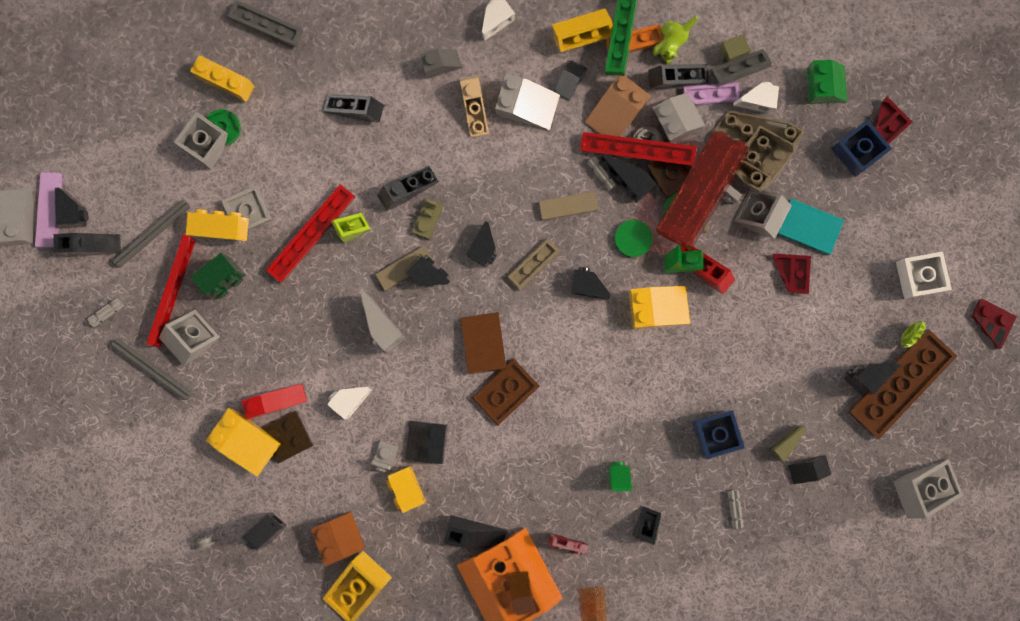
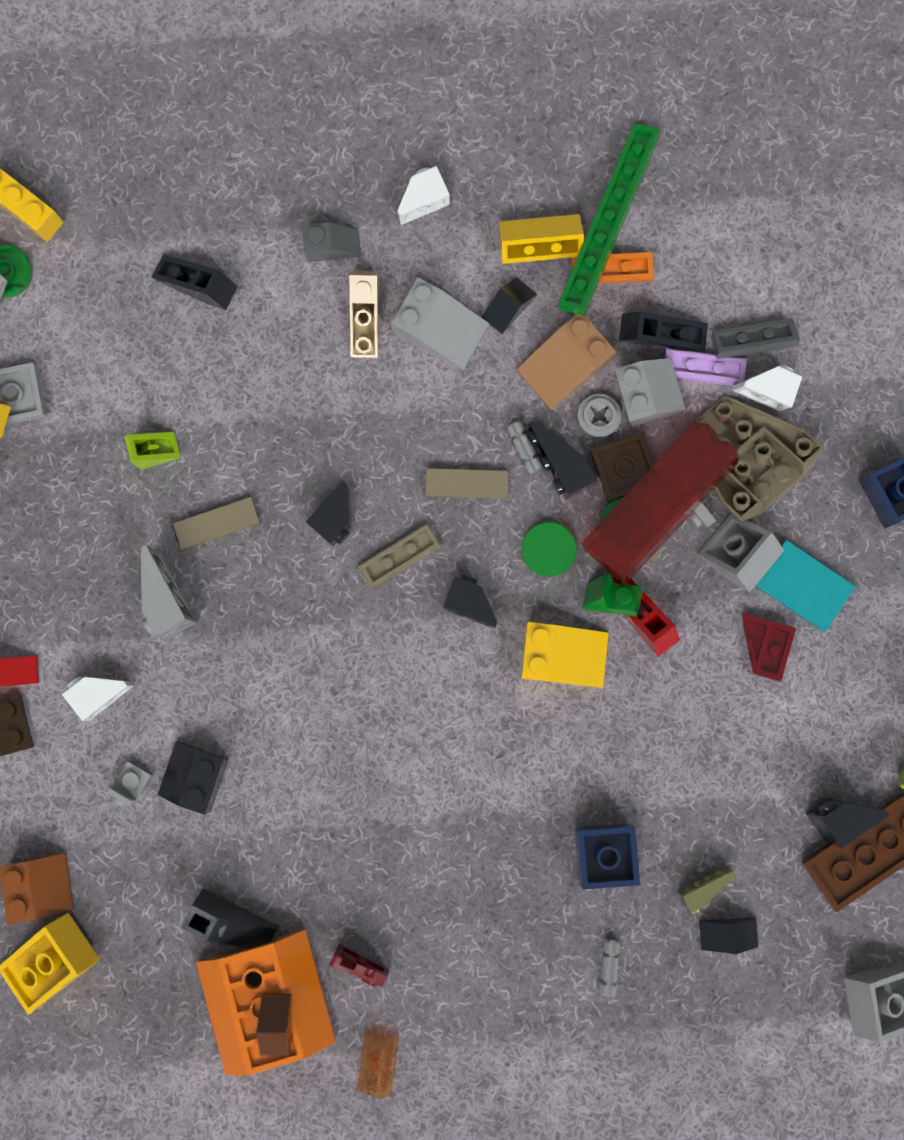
camera: 10 degrees right, 0 degrees up
(265, 23) = (97, 137): dark grey plate -> none
(310, 233) = (94, 447): red plate -> none
(406, 188) = (243, 410): black slope -> none
(406, 489) = (147, 838): yellow brick -> none
(425, 273) = (243, 538): black slope -> none
(427, 219) = (264, 460): olive plate -> none
(483, 343) = (303, 654): reddish brown tile -> none
(505, 392) = (320, 729): reddish brown tile -> none
(619, 477) = (453, 887): green slope -> none
(638, 148) = (583, 423): red plate -> none
(647, 525) = (478, 965): black slope -> none
(675, 36) = (669, 274): lime animal -> none
(734, 48) = (750, 309): olive brick -> none
(826, 82) = (873, 384): green slope -> none

